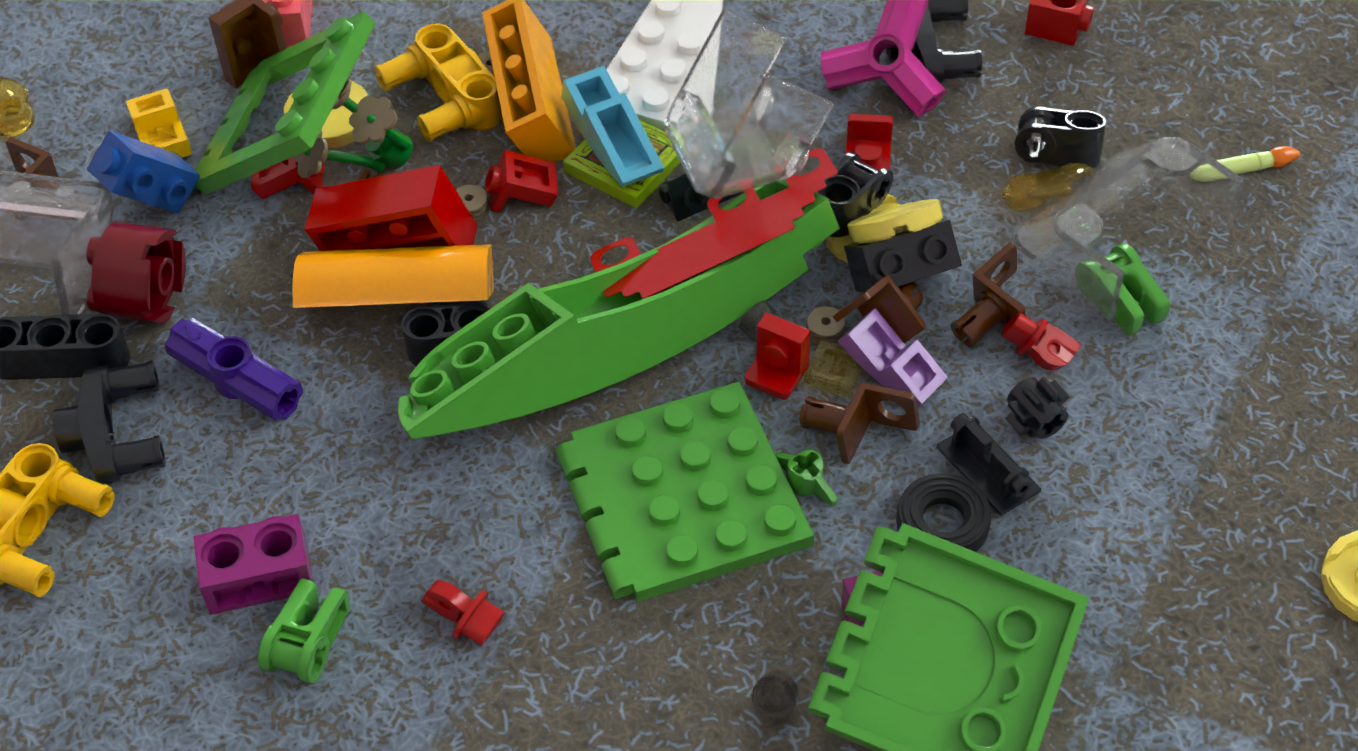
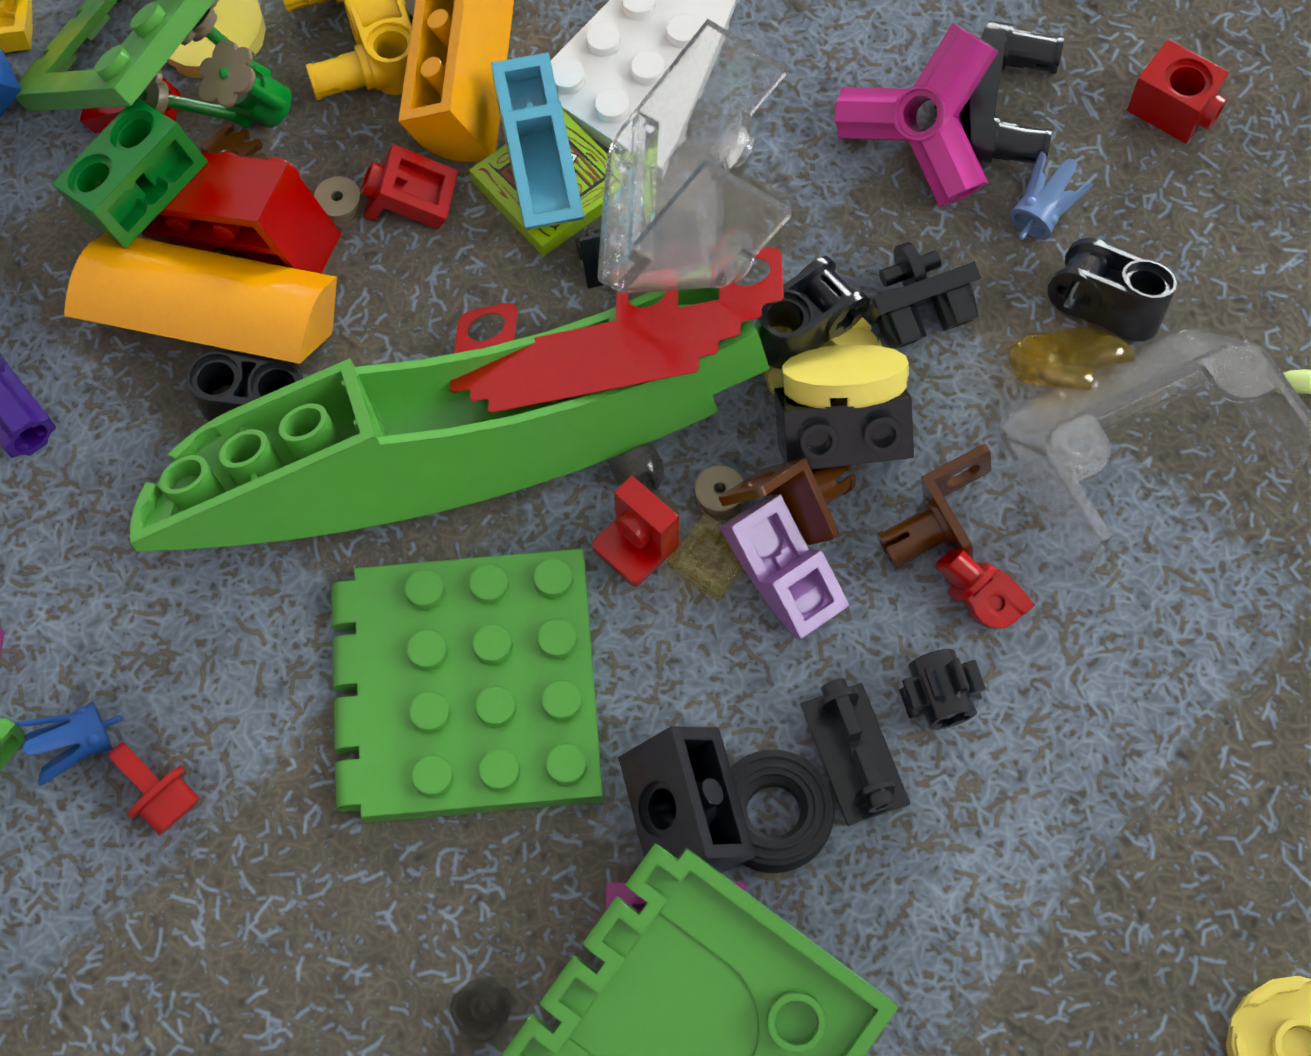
camera: 15 degrees right, 15 degrees up
(317, 199) = (130, 172): none -> green brick
(399, 582) = (80, 728): none -> blue piece
(806, 474) = (622, 701): bright green piece -> none
(852, 420) = (704, 643): reddish brown bracket -> none
(869, 494) = (687, 796): none -> black brick
(870, 138) = (862, 241): red bracket -> none
(944, 163) = (947, 291): none -> black hips
(989, 102) = (1042, 207): none -> medium blue piece
(1138, 292) = (1127, 515): bright green piece -> none

